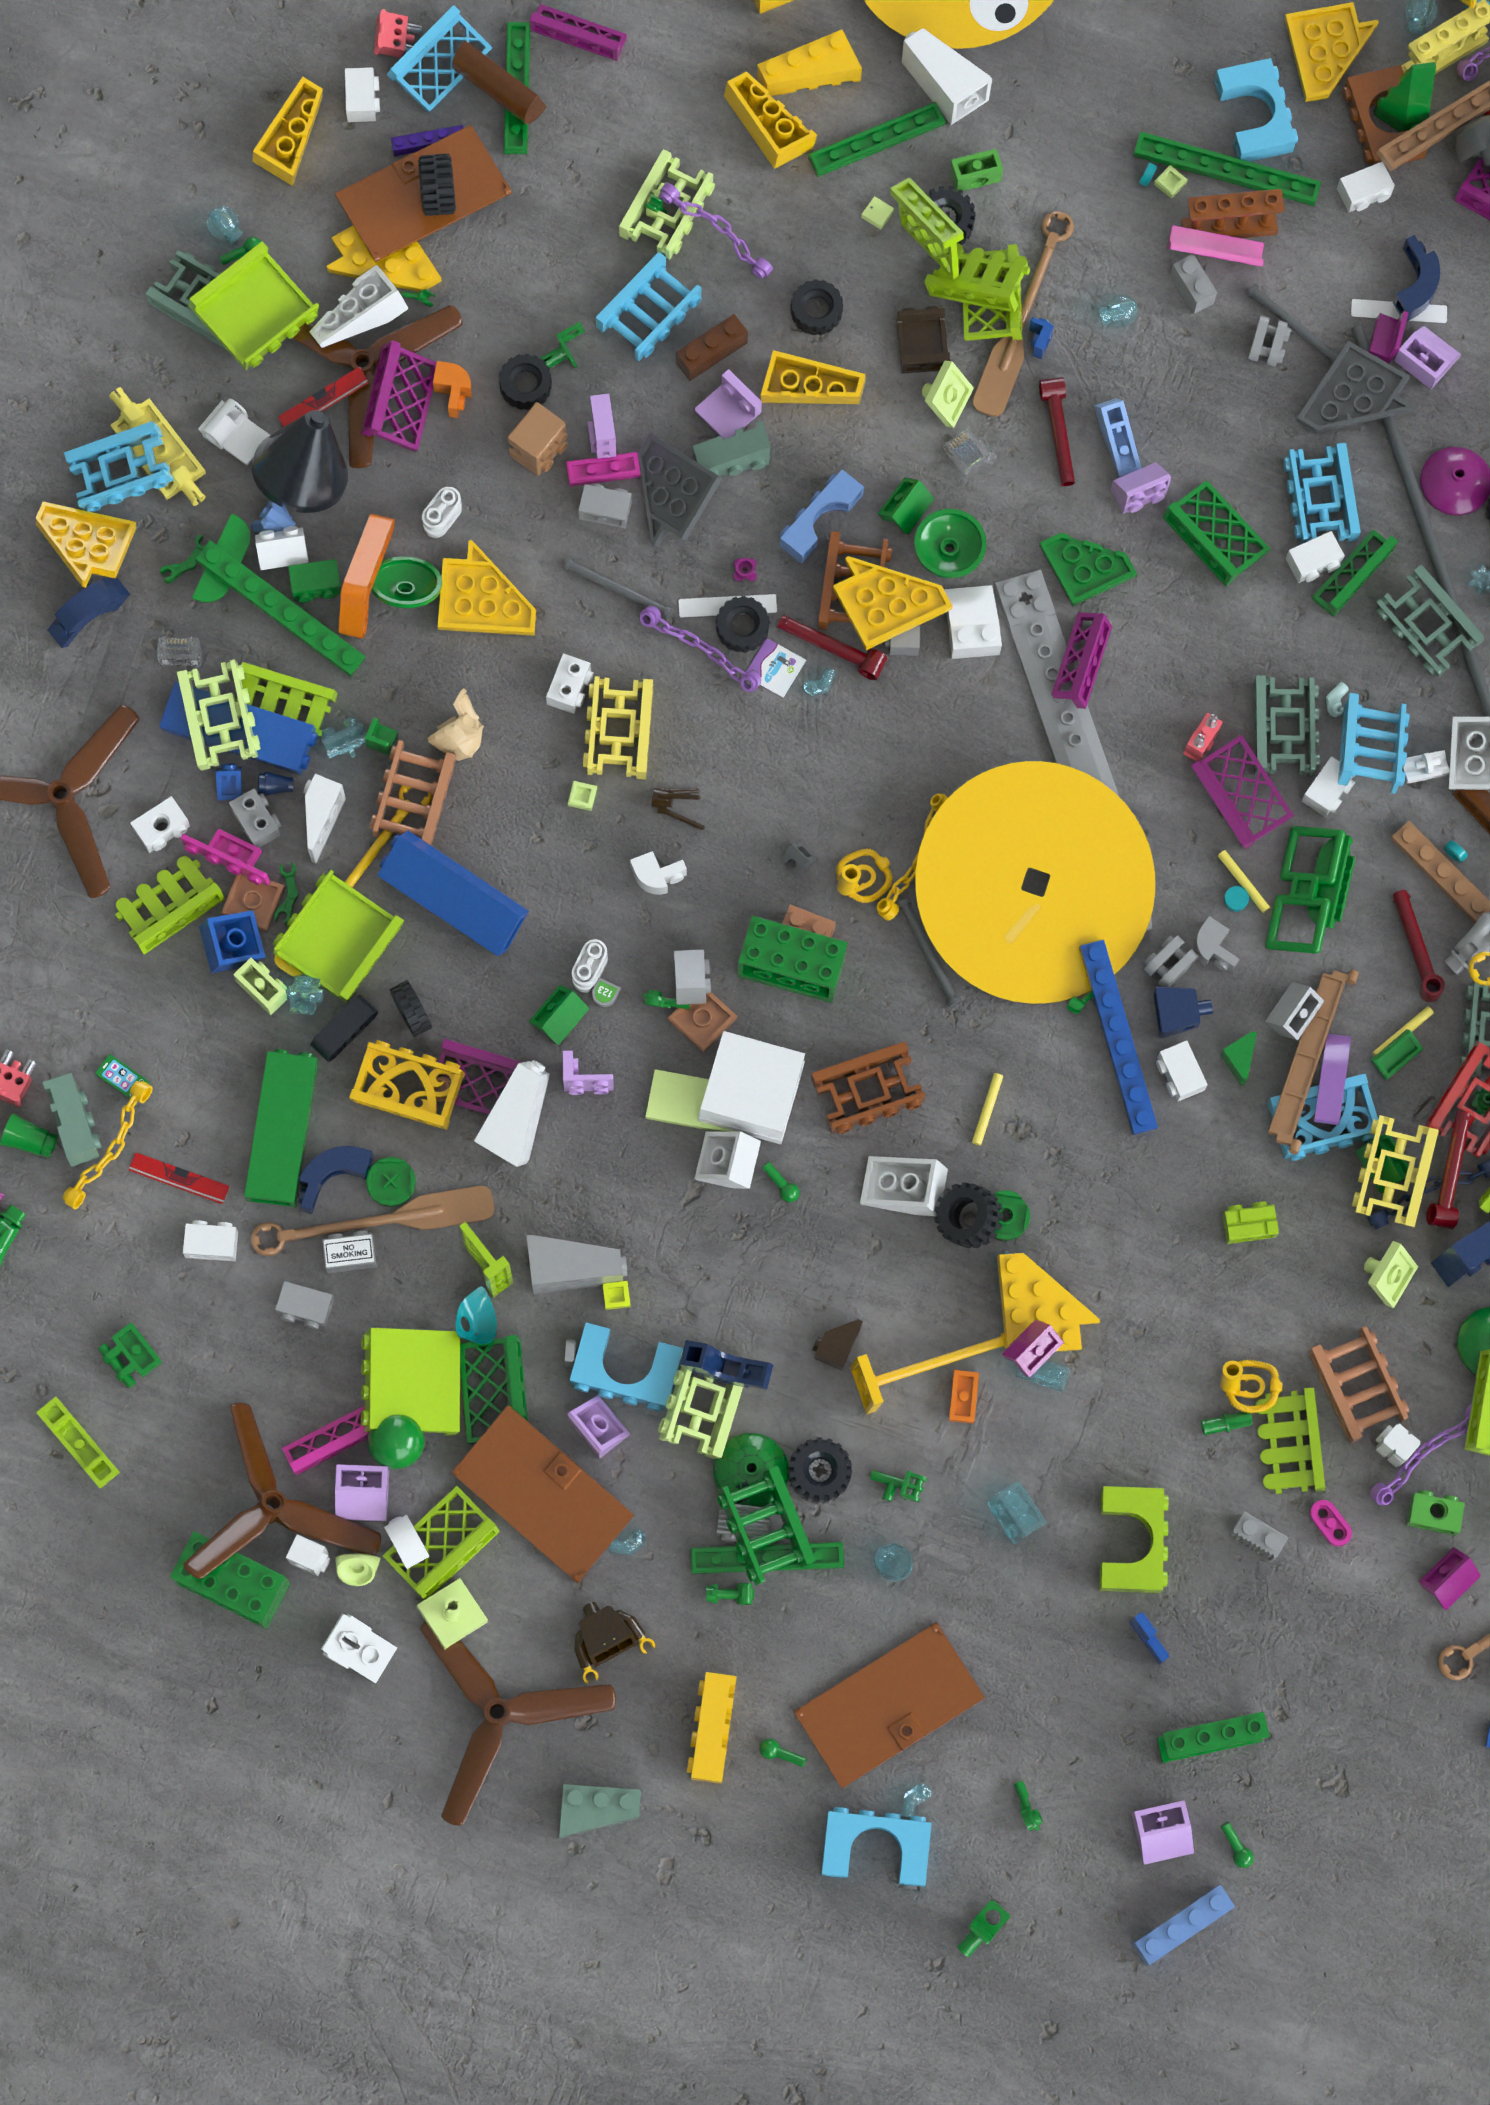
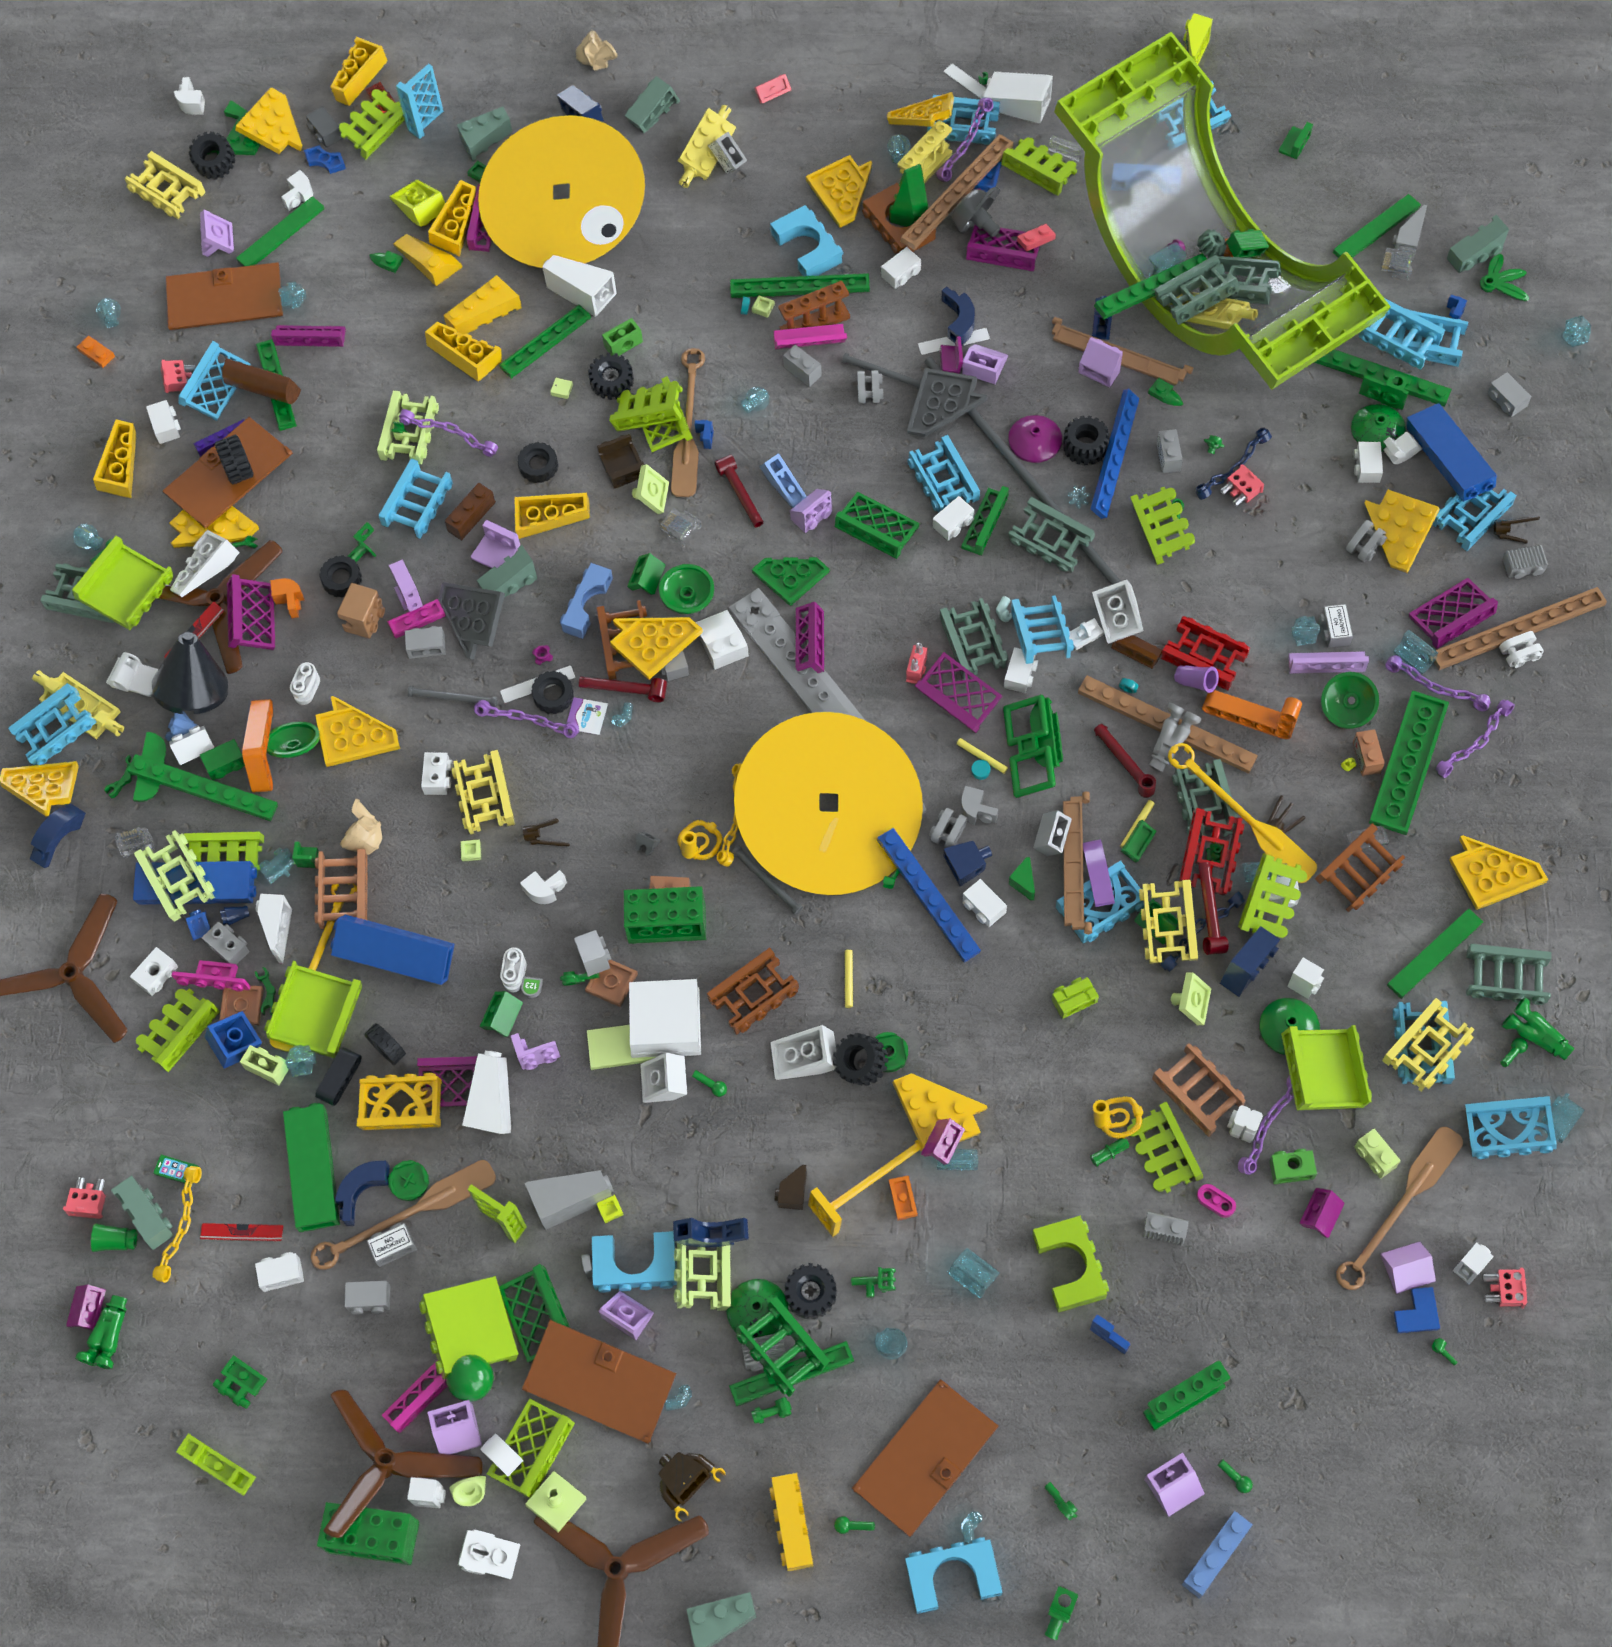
camera: 10 degrees left, 10 degrees down
(481, 1317) = (508, 1259): teal piece -> none
(928, 225) = (600, 380): lime fence -> none

